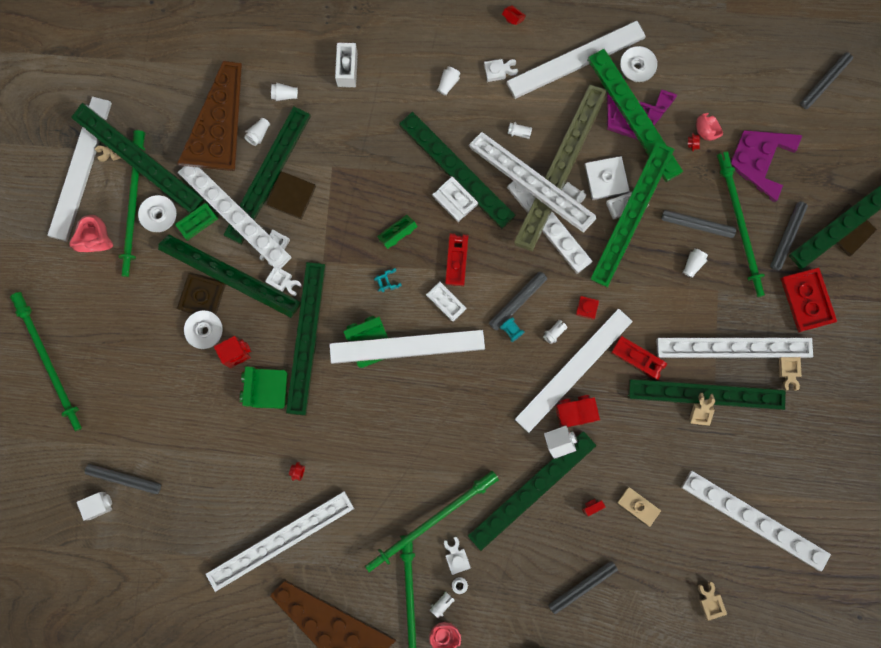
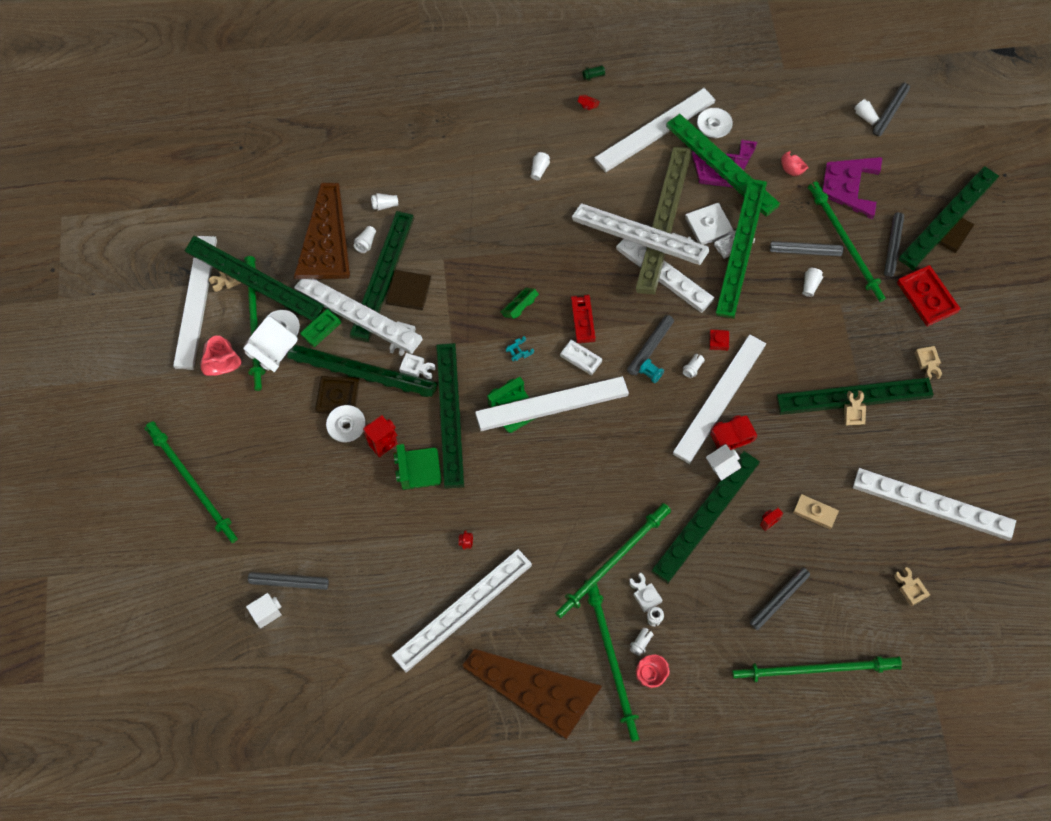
camera: 10 degrees left, 15 degrees down
(141, 233) = (270, 343): none -> white bracket
(346, 64) = (440, 167): white brick -> none
(455, 168) = (565, 241): dark green plate -> none
(455, 199) = (569, 266): white plate -> none
(496, 69) = (583, 150): white plate -> none
(519, 130) = (616, 197): white pin -> none
(638, 357) = (780, 375): red plate -> none
(694, 142) = (783, 179): red plate -> none
(734, 347) = (868, 349): white plate -> none
(799, 79) = (866, 111): none -> white cone

